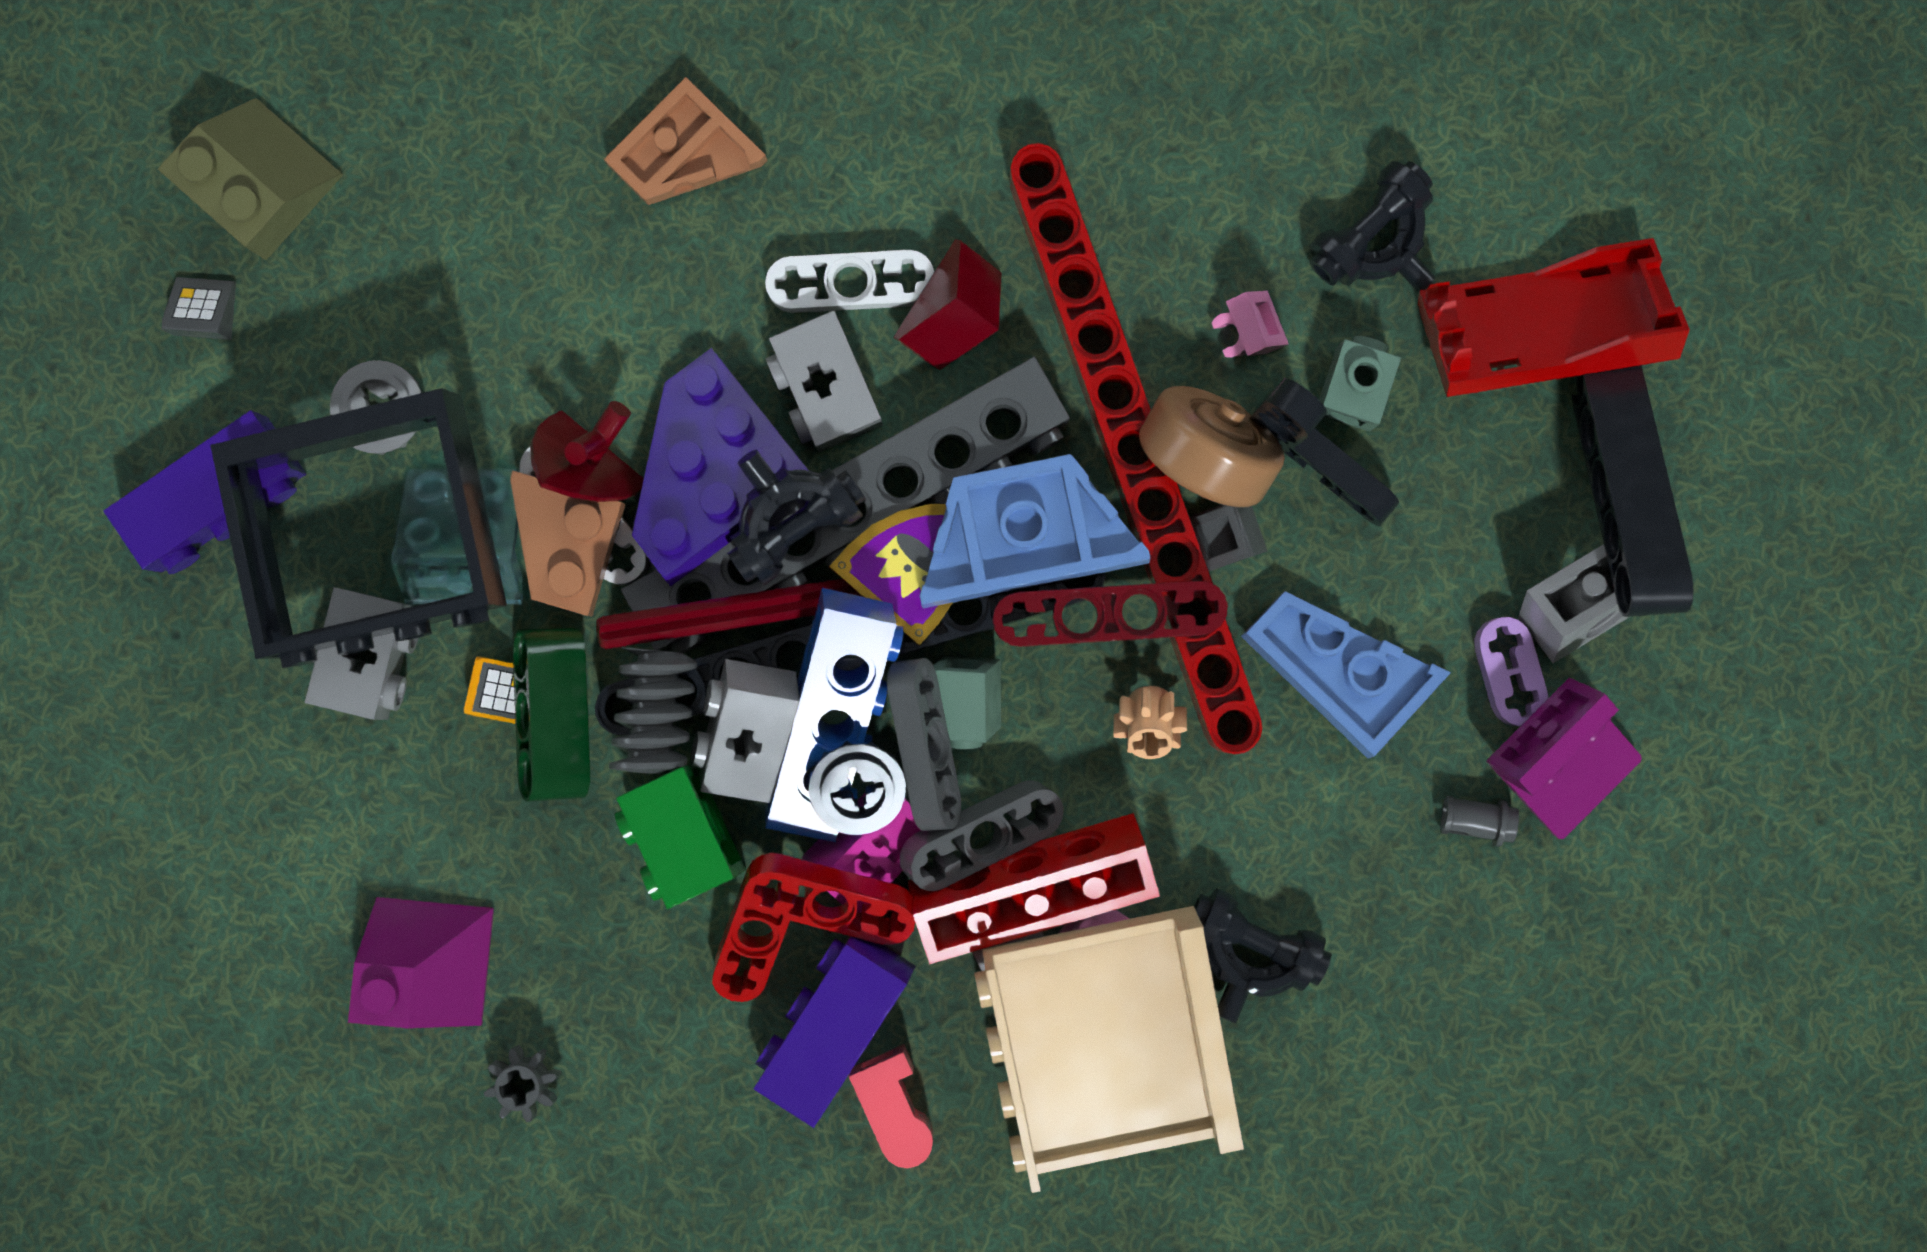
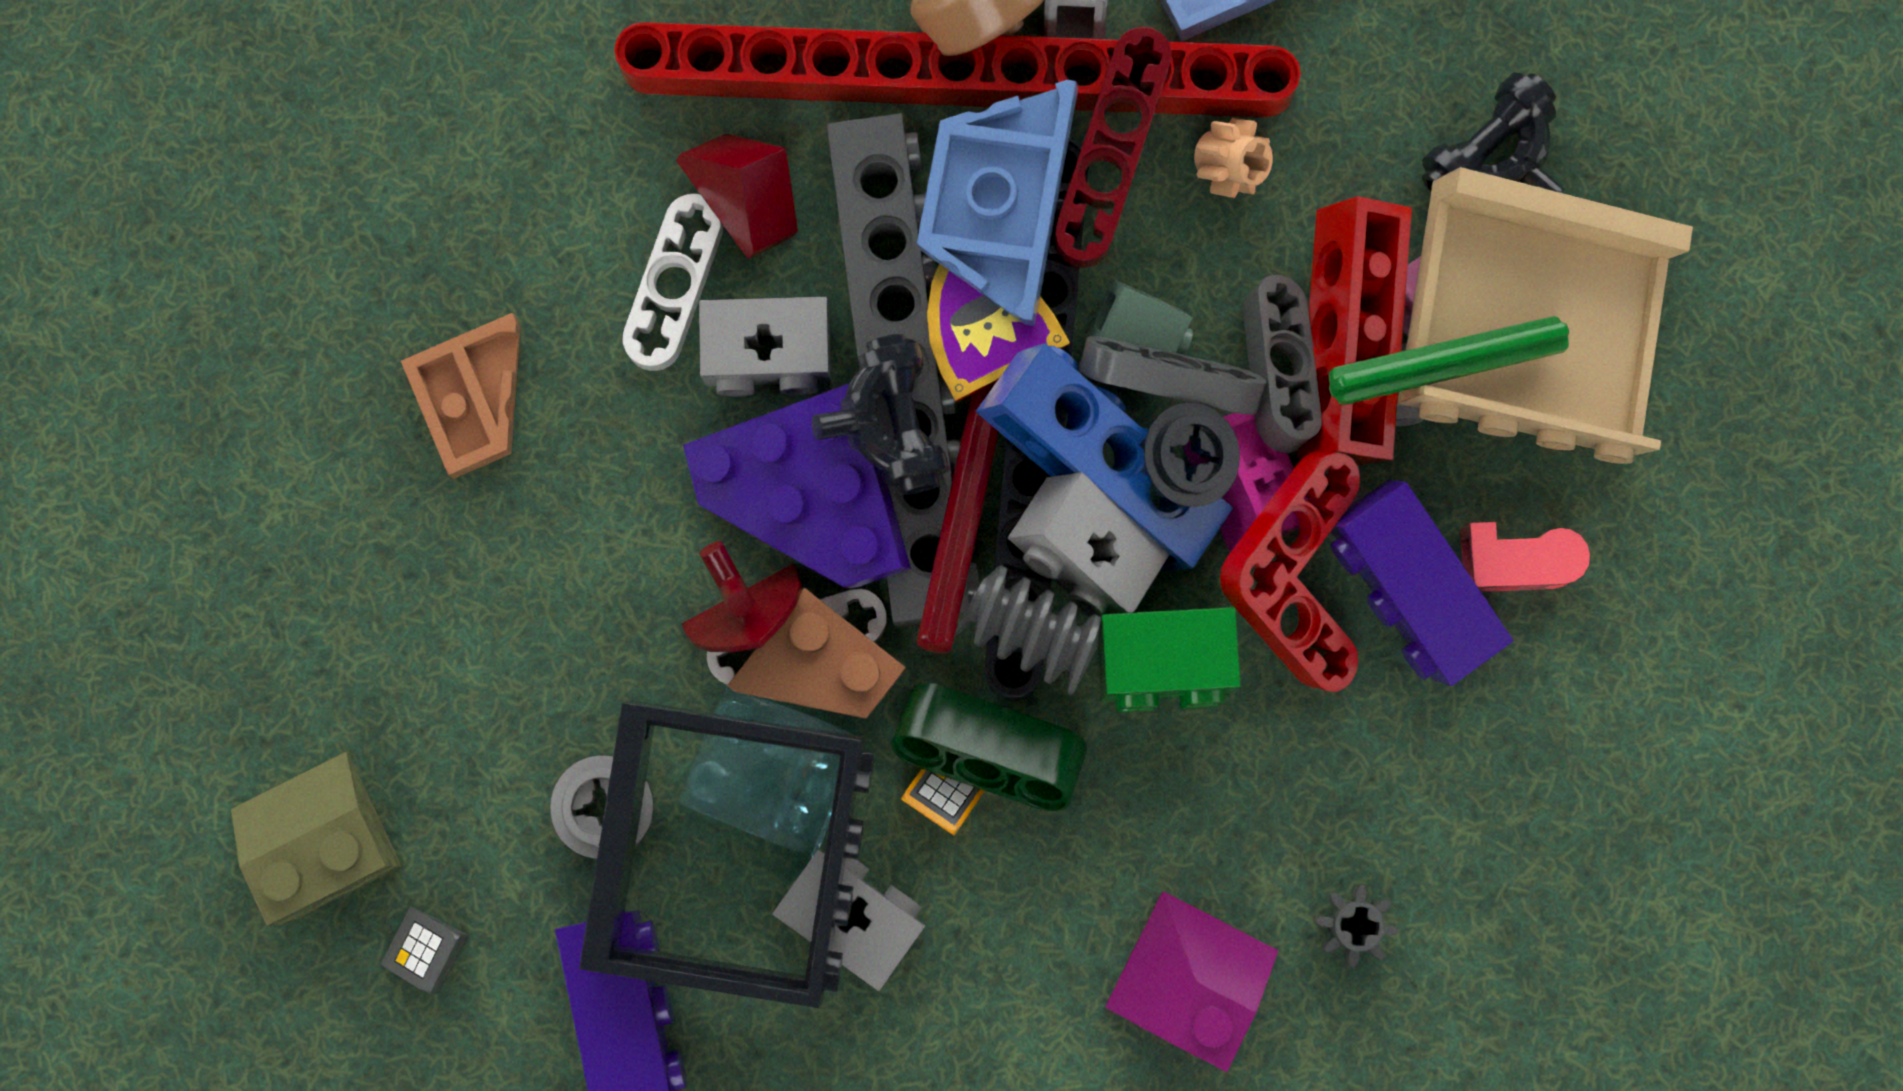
camera: 65 degrees left, 5 degrees down
(1030, 980) = (1448, 360): none -> green axle

